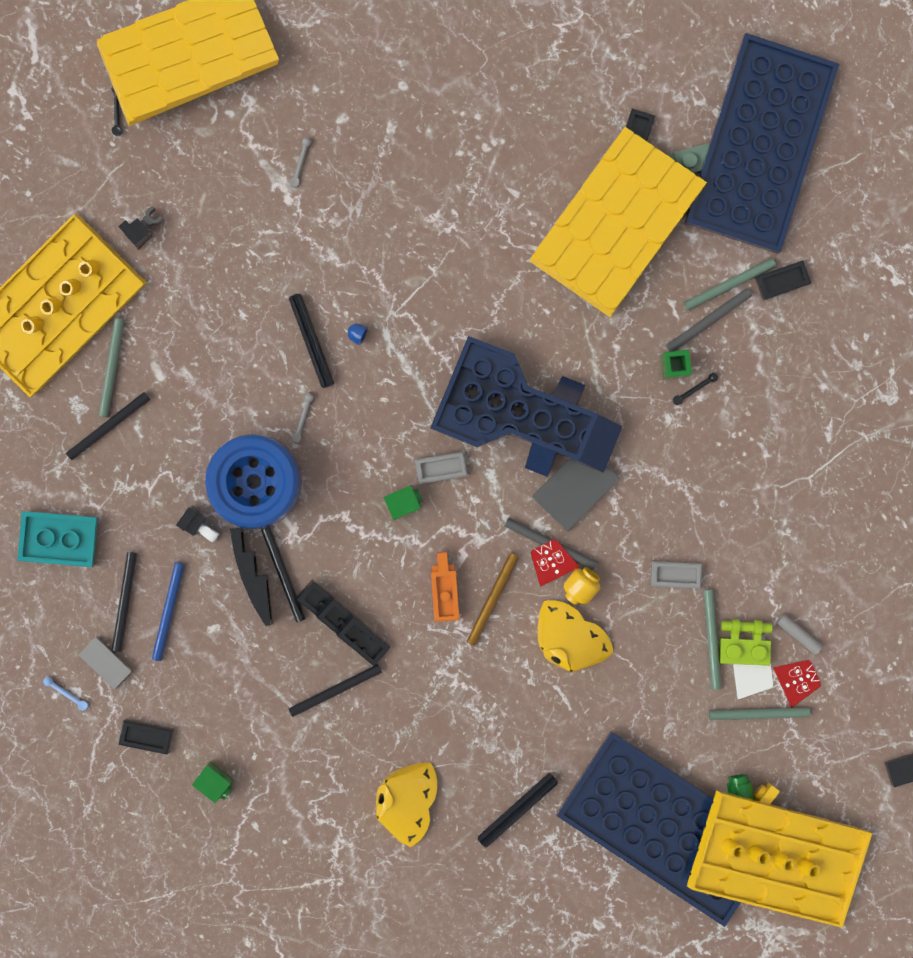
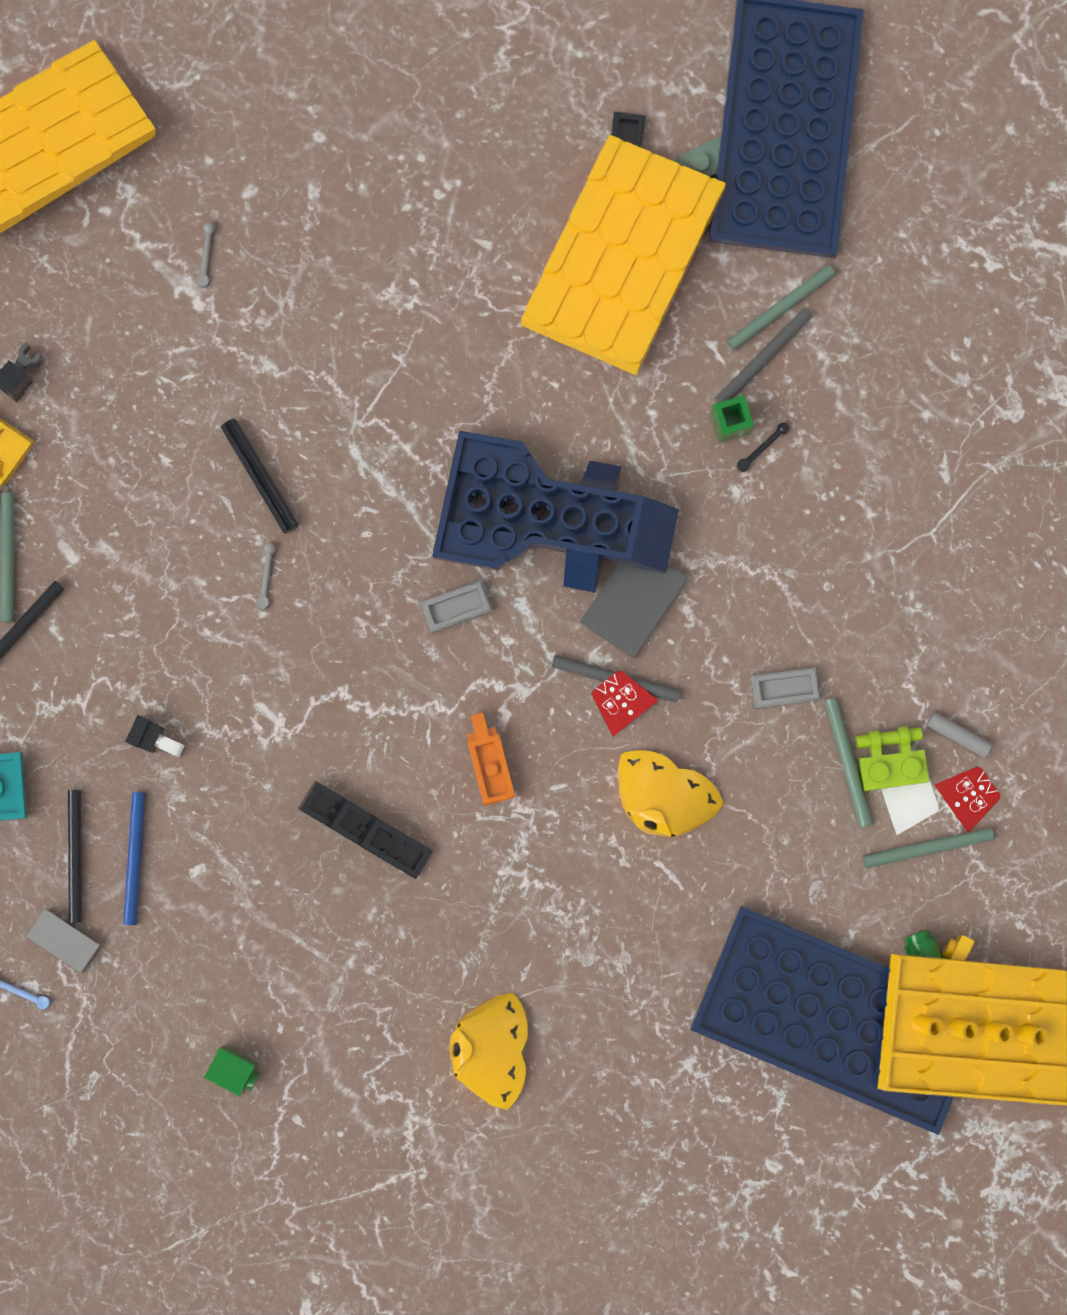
camera: 10 degrees left, 5 degrees down
(146, 736) = (133, 1028): black tile -> none
(238, 509) = (189, 635): blue wheel -> none
(255, 585) = (242, 801): black slope -> none
(283, 574) = (276, 782): black bar -> none
(335, 690) = (370, 920): black bar -> none
(357, 333) = (317, 455): blue hinge -> none
(403, 502) = (415, 658): green brick -> none
(492, 599) = (553, 763): pearl gold bar -> none
(517, 810) = (638, 1033): black axle -> none
(582, 586) = (666, 724): yellow head -> none
(783, 280) = (847, 290): black tile -> none

